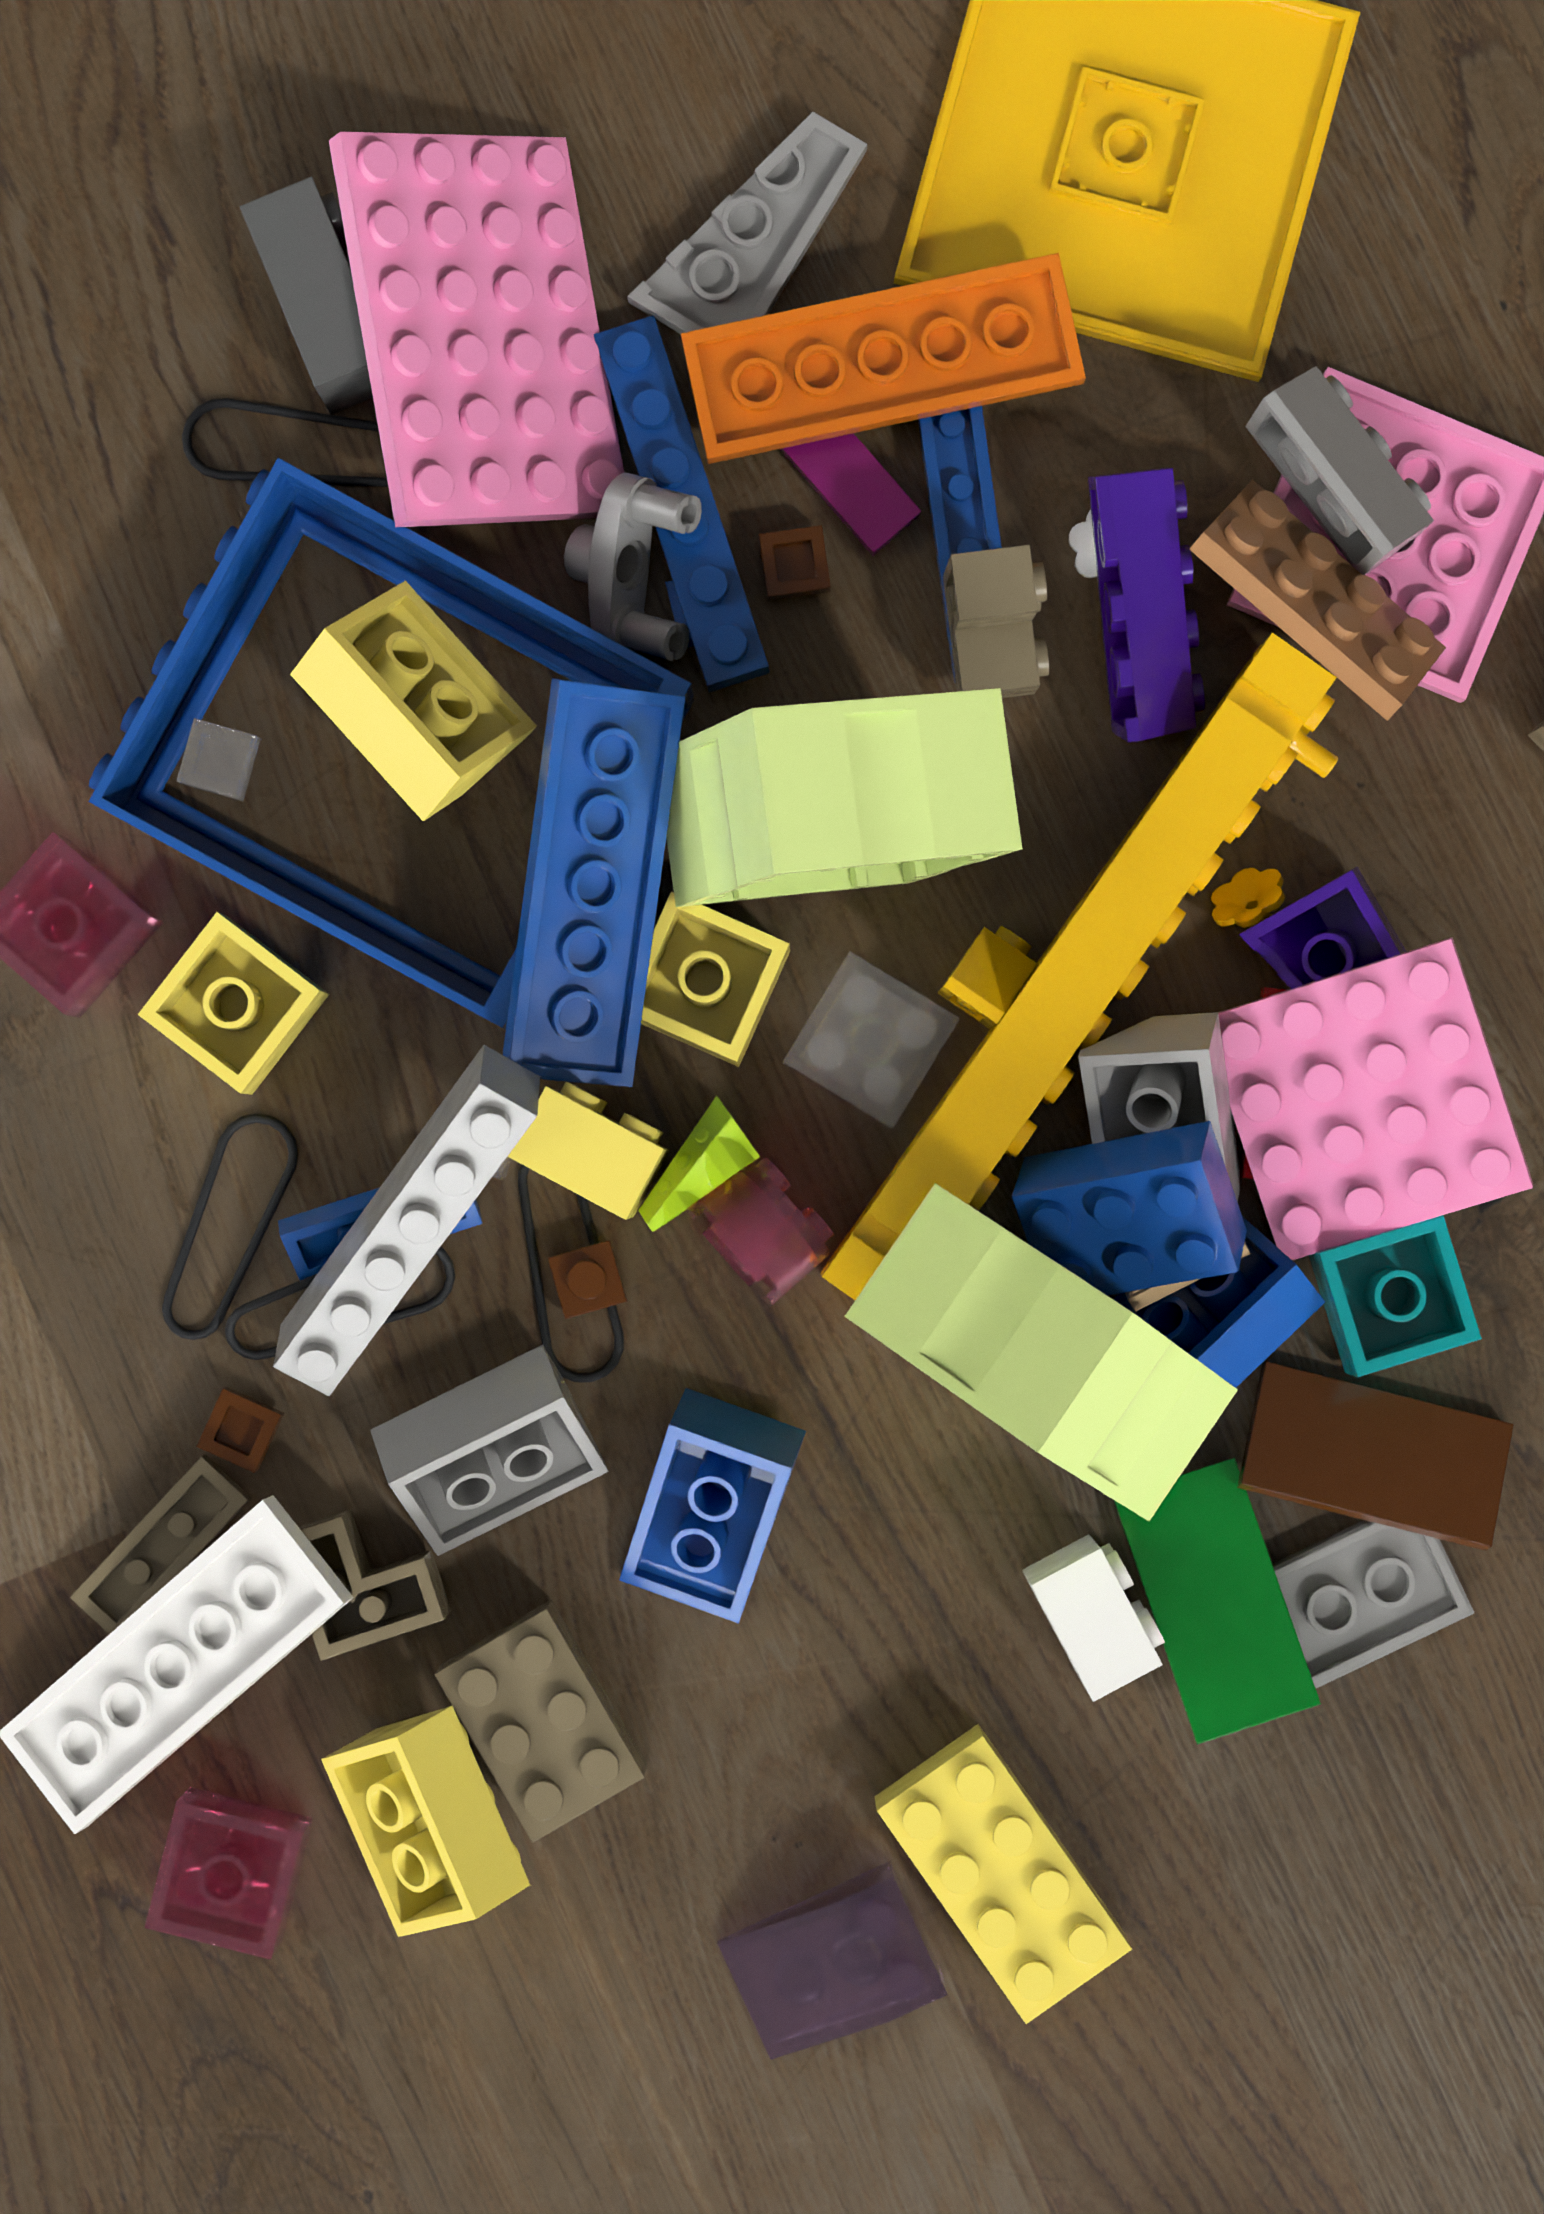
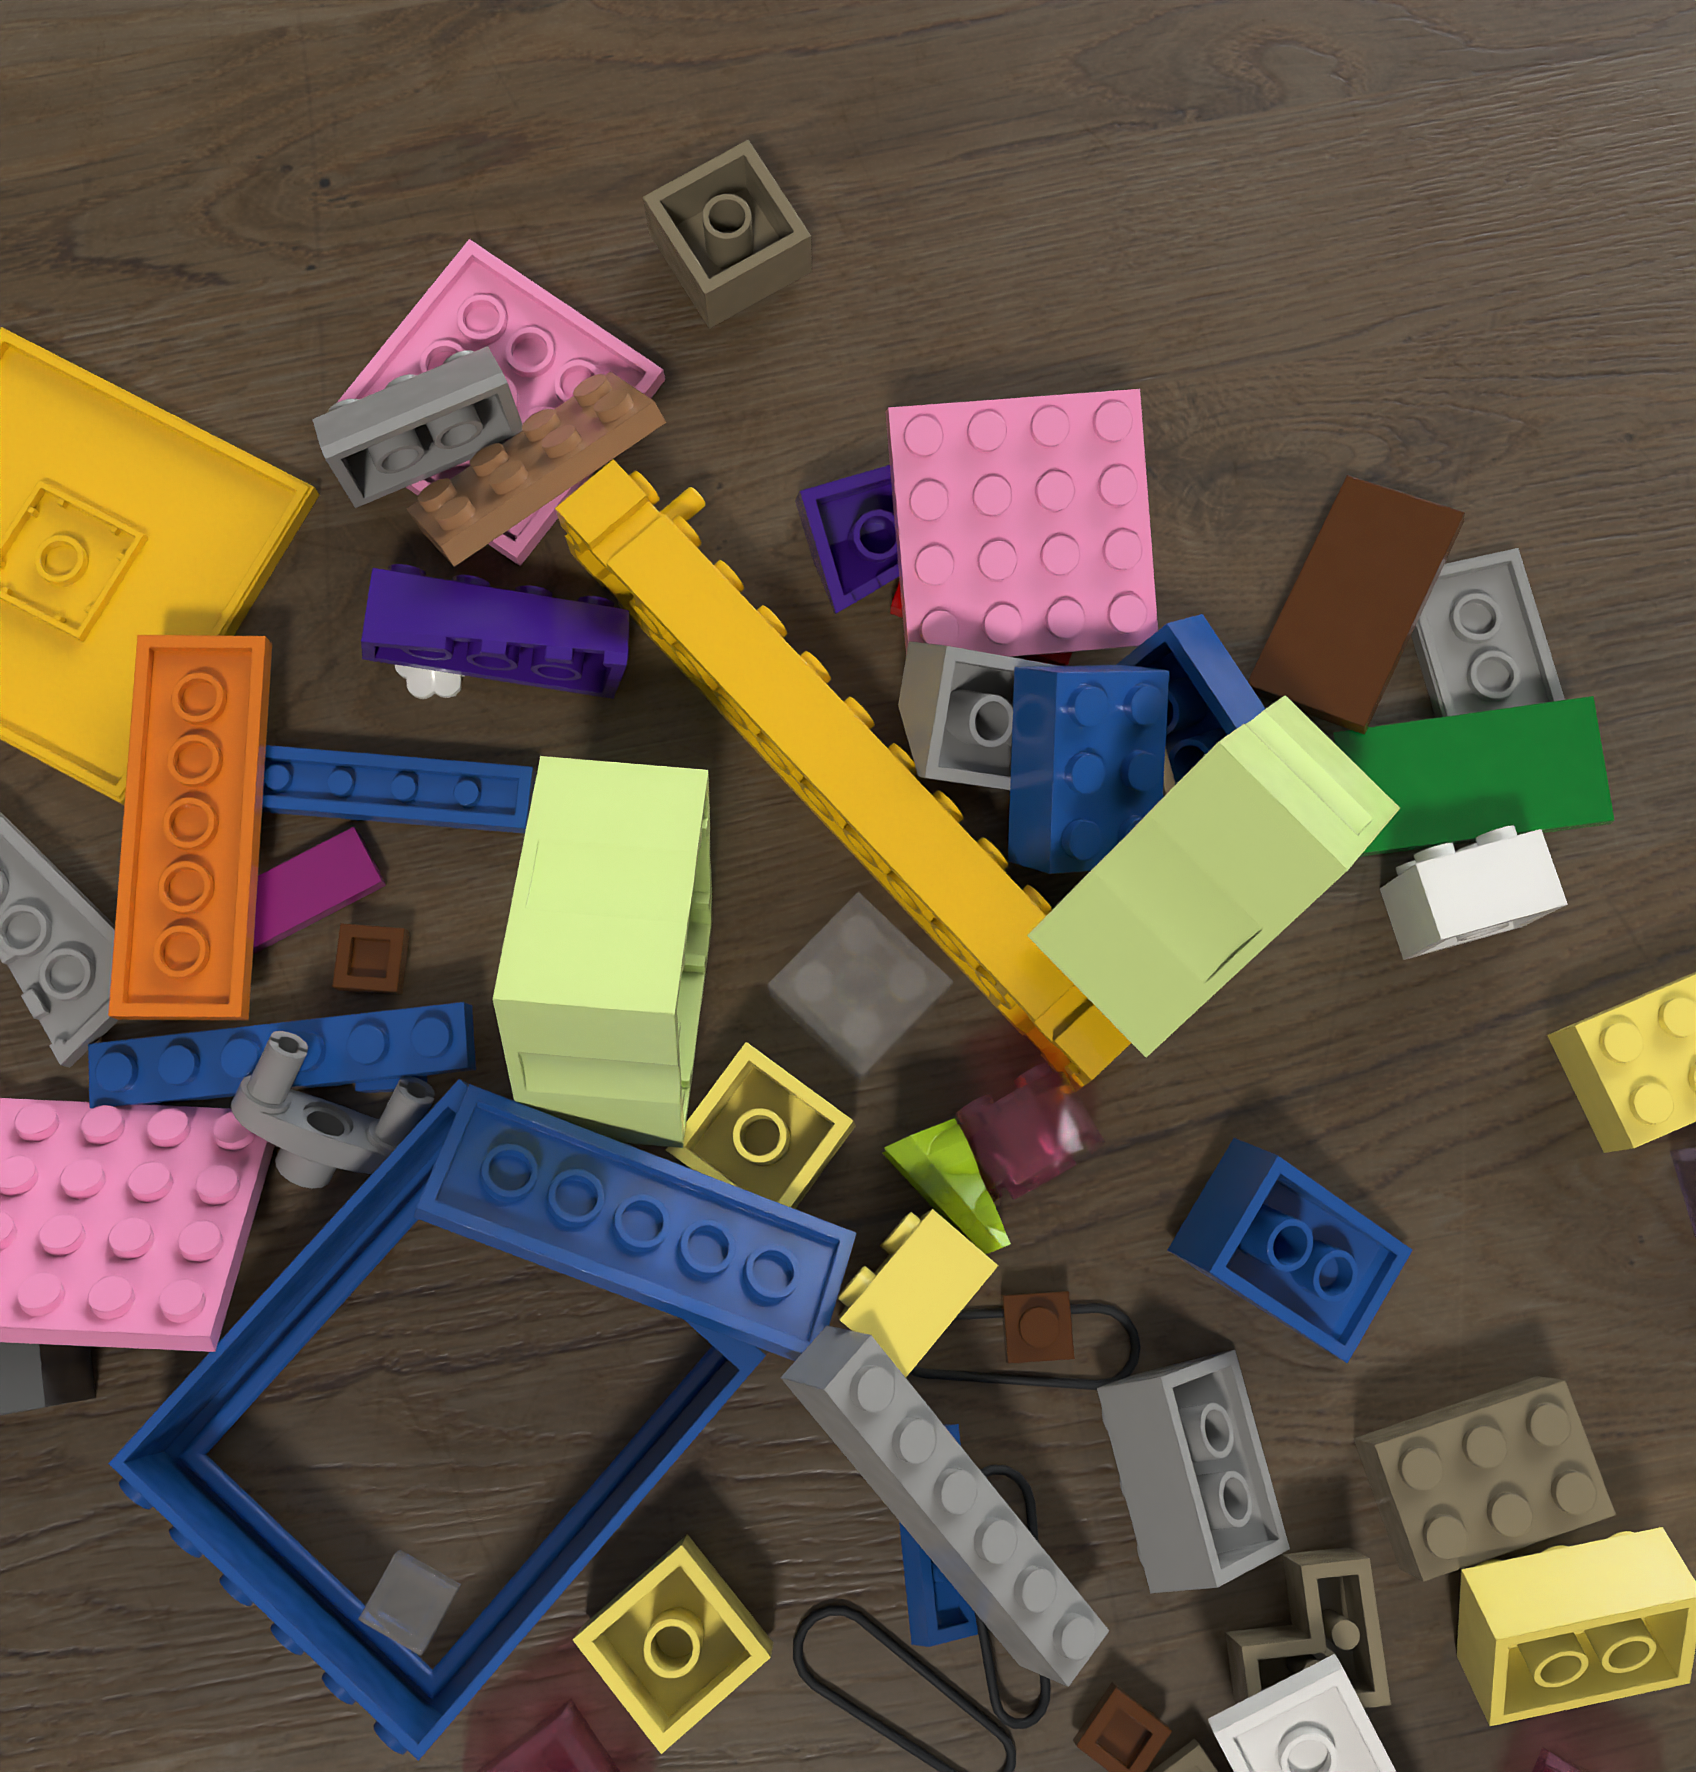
camera: 80 degrees left, 10 degrees down
(278, 411) = (75, 1452): black piece -> none
(412, 699) = (398, 1376): light yellow slope -> none
(989, 975) = (823, 859): yellow slope -> none
(990, 619) = (465, 775): dark tan brick -> none
(1248, 897) = (802, 603): yellow plant -> none
(1395, 1297) = (1215, 548): teal brick -> none

